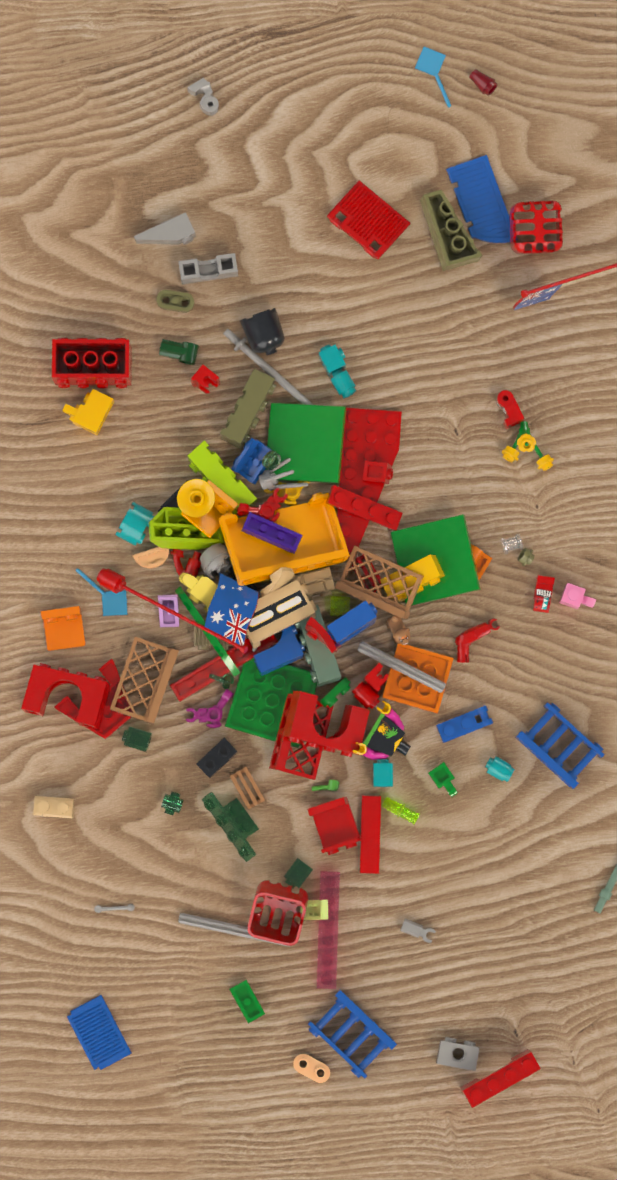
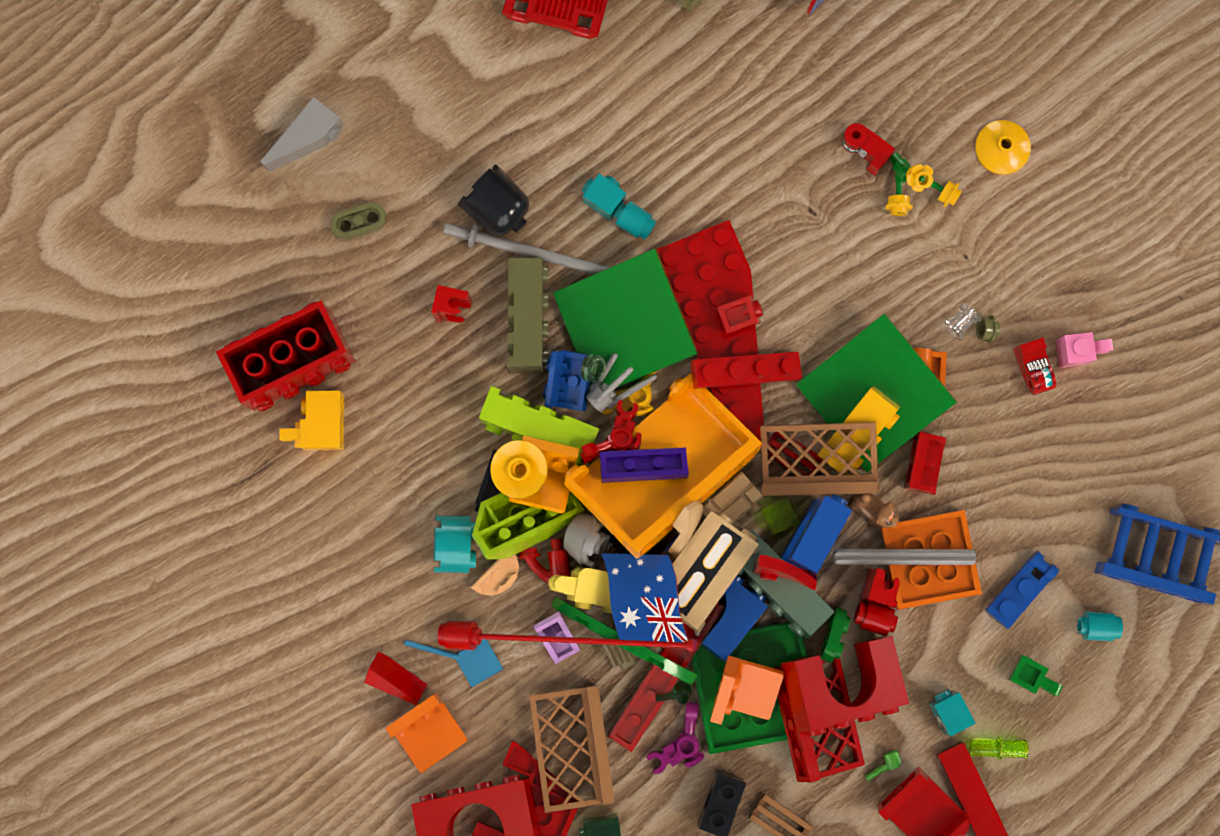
camera: 30 degrees left, 0 degrees up
(59, 587) = (394, 679): none -> red slope
(183, 352) = (403, 283): dark green piece -> none
(199, 271) = (395, 149): light grey arch -> none
(265, 696) = (746, 689): none -> orange bracket
(385, 736) = (928, 661): torso -> none
(445, 619) = (925, 463): none -> red hinge
(470, 636) = (971, 470): red arm -> none
(588, 457) = (994, 156): none -> yellow dish

